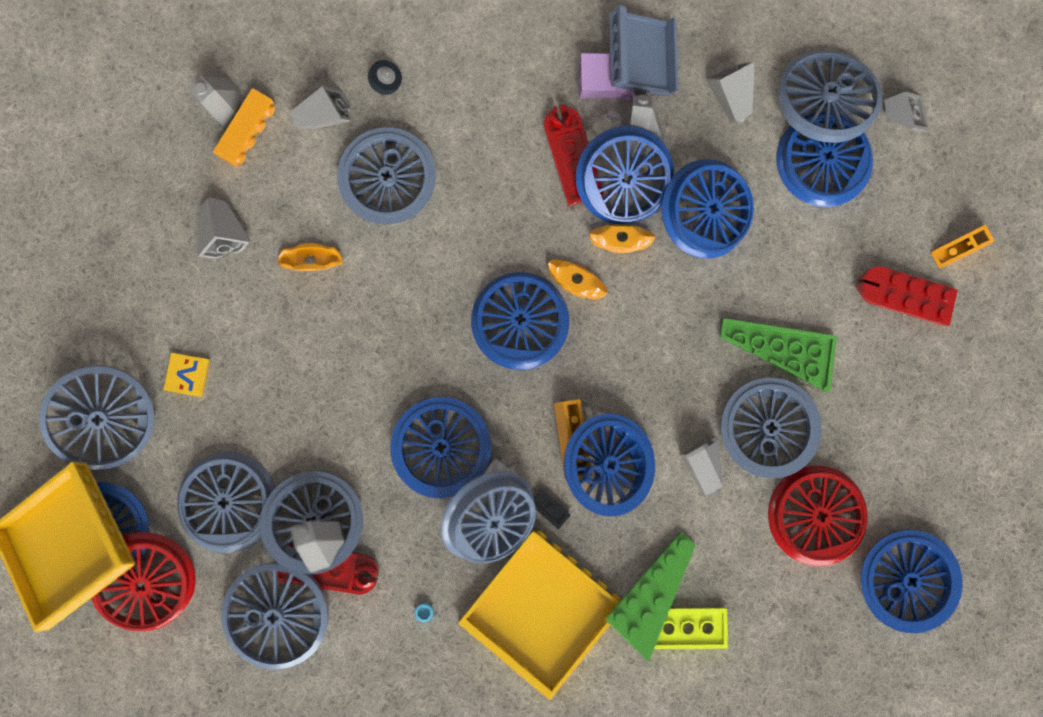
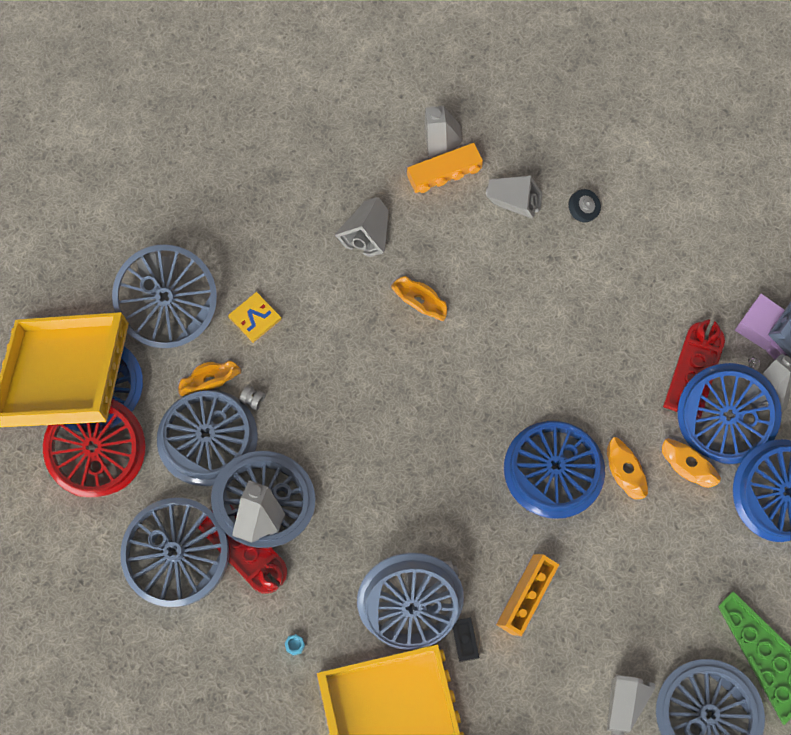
camera: 40 degrees right, 15 degrees down
(196, 441) = (220, 372): none -> light orange piece
(237, 444) = (251, 397): none -> light grey wheel
(367, 141) = (534, 243): sand blue piece -> none
(451, 485) = (412, 477): blue piece -> none
(607, 464) = (579, 638): blue piece -> none

